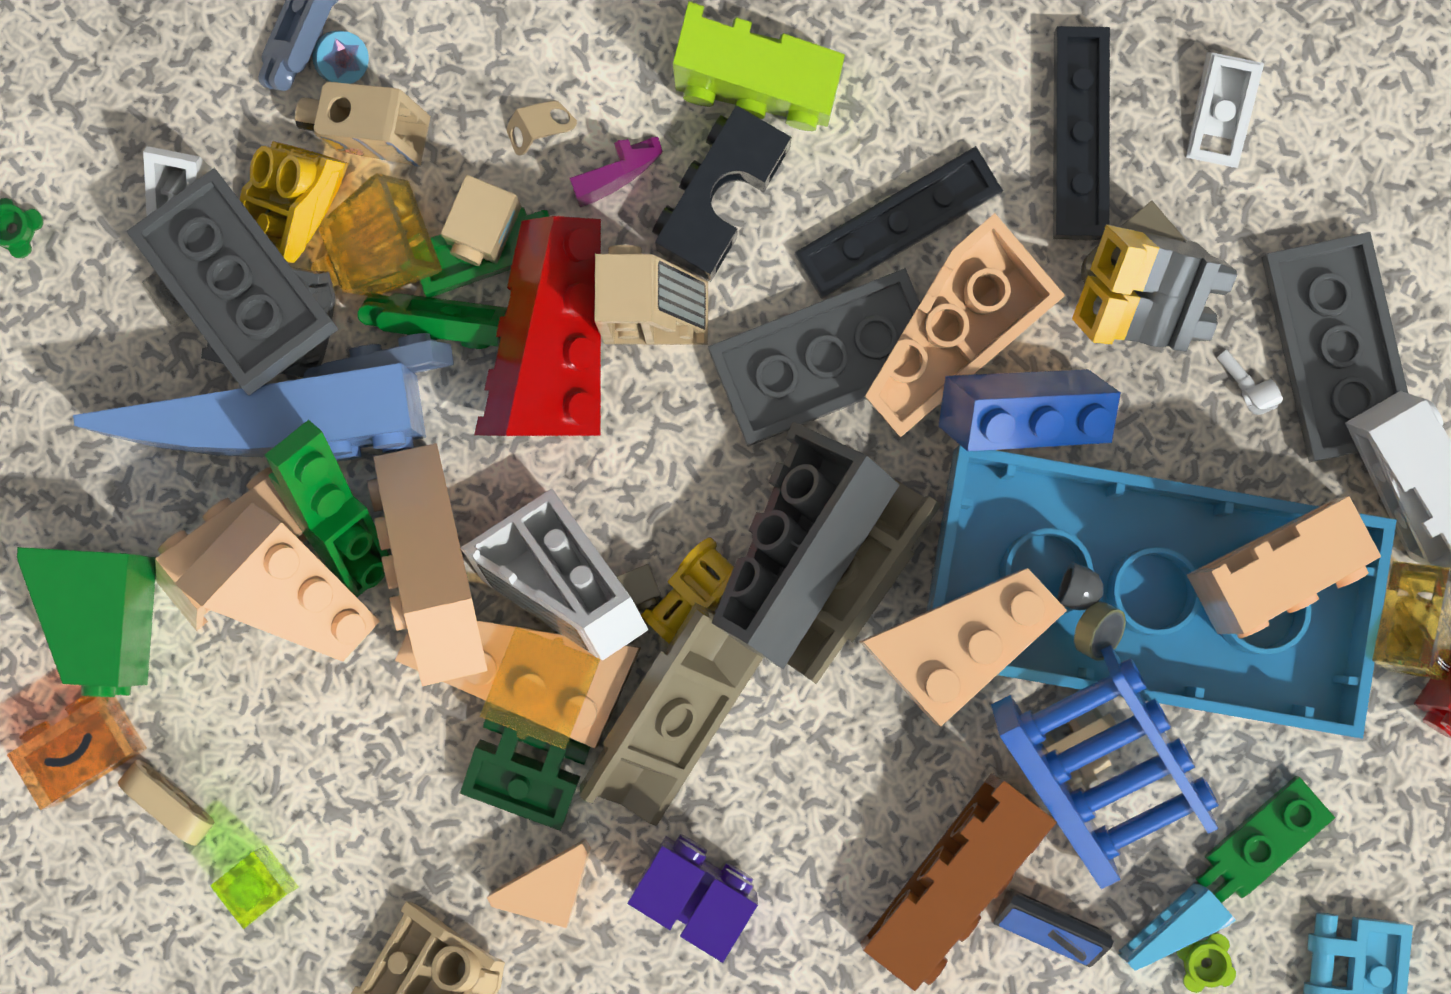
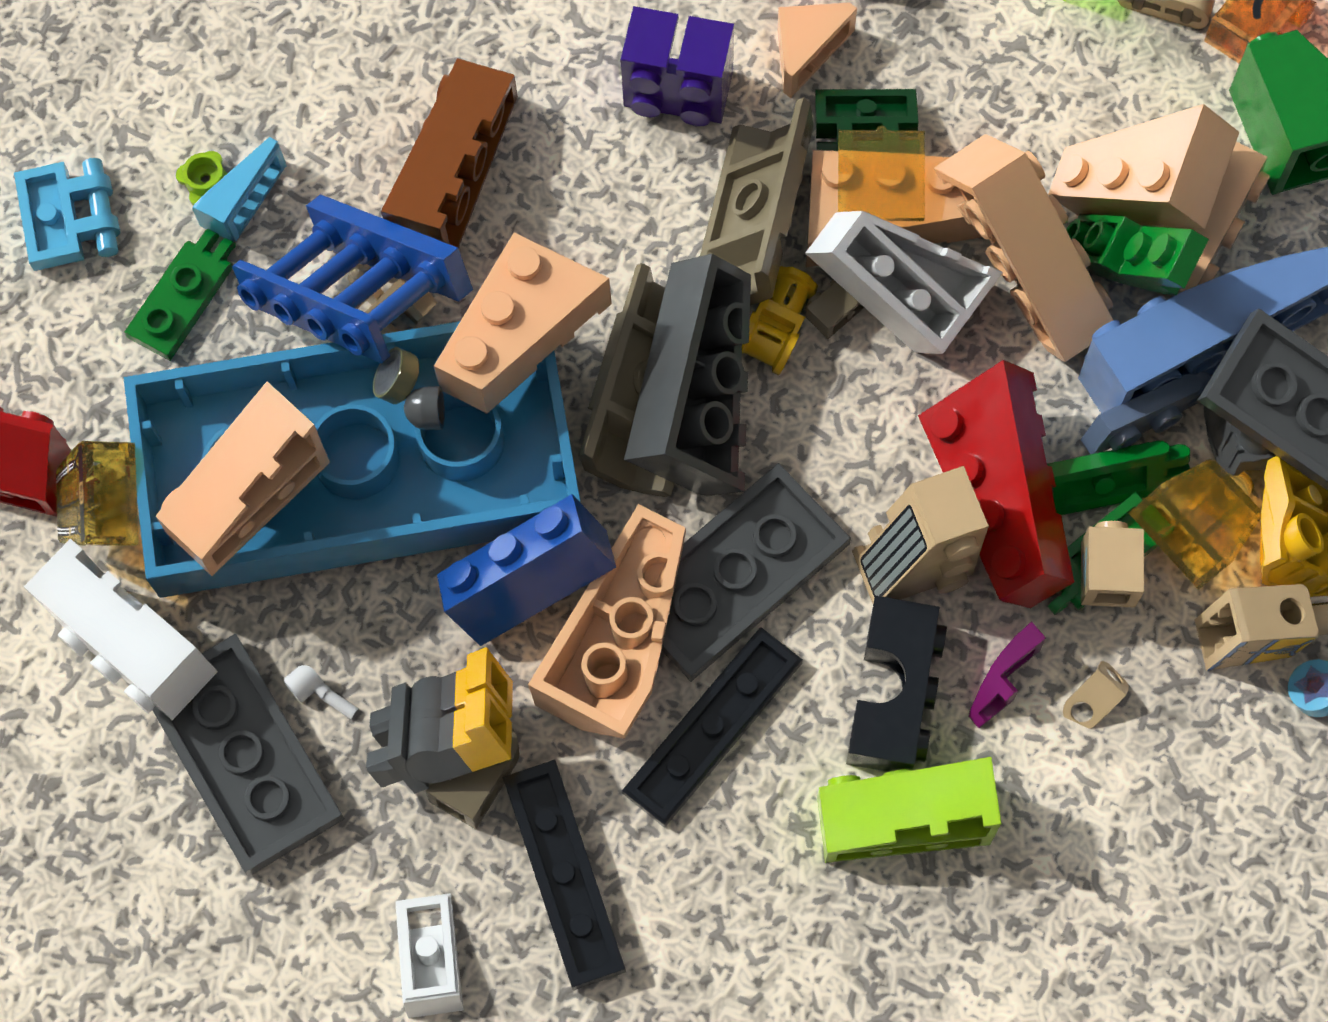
camera: 160 degrees right, 15 degrees down
(1052, 928) = (350, 162): slope -> none

